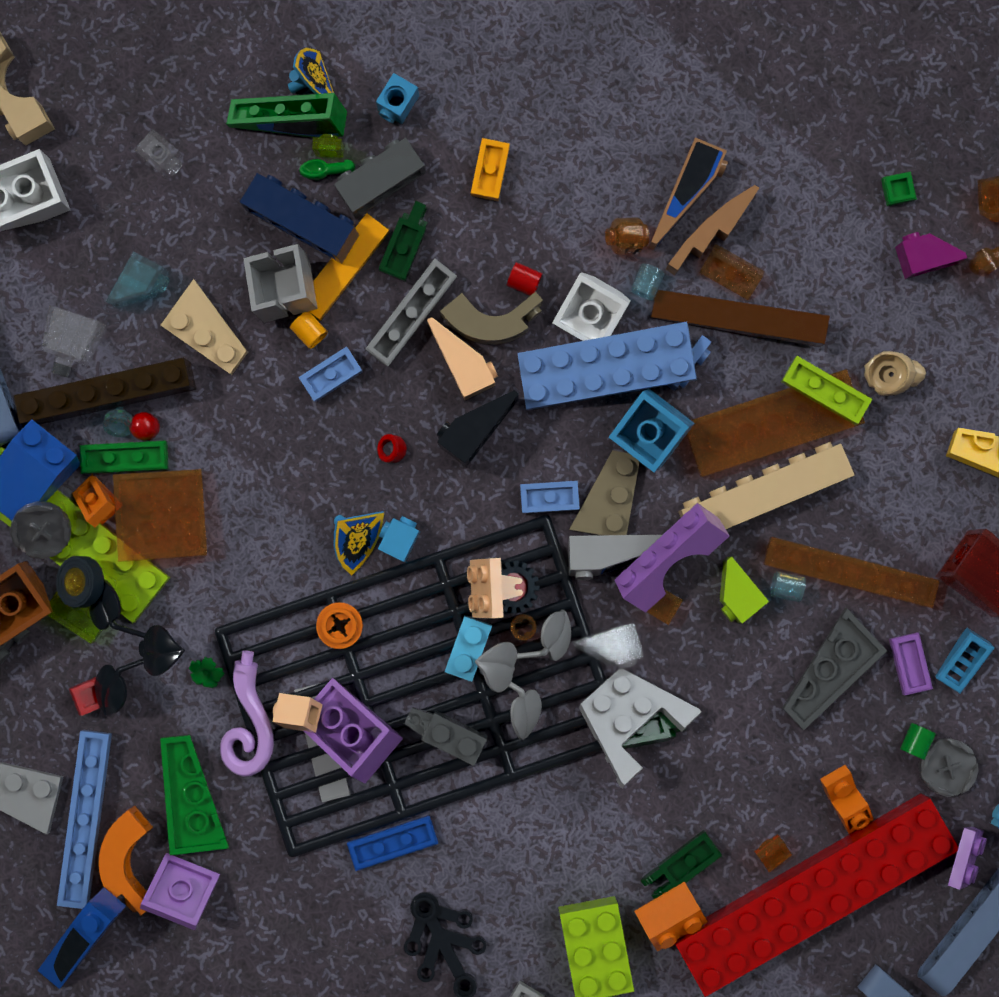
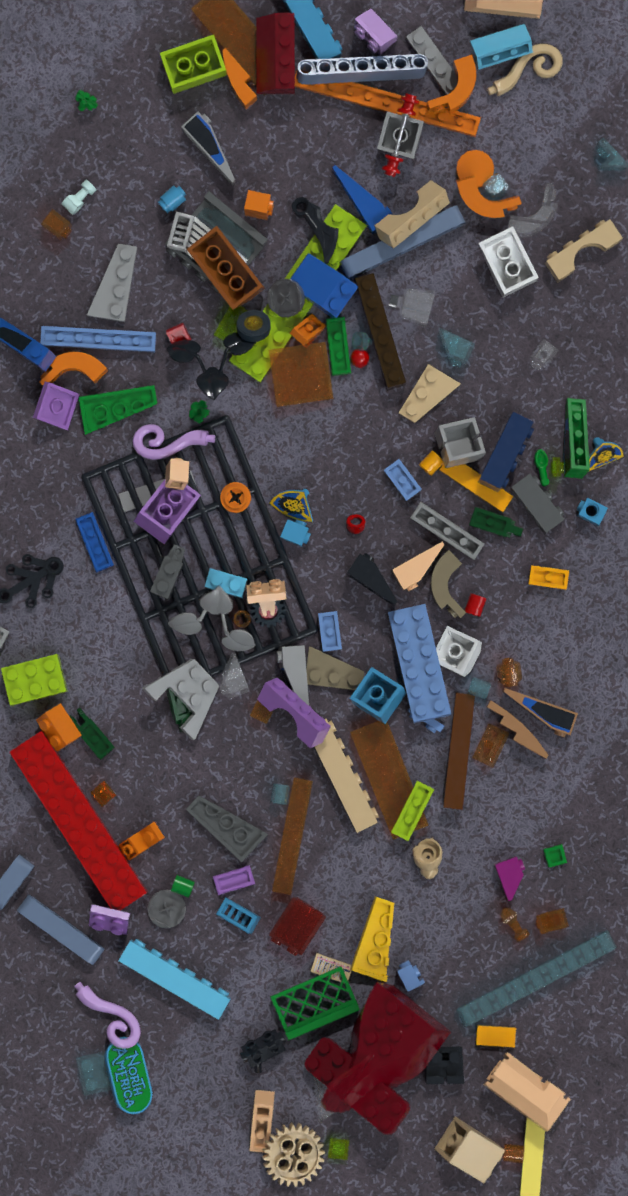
camera: 85 degrees right, 0 degrees up
(739, 593) = (273, 761): lime slope -> none

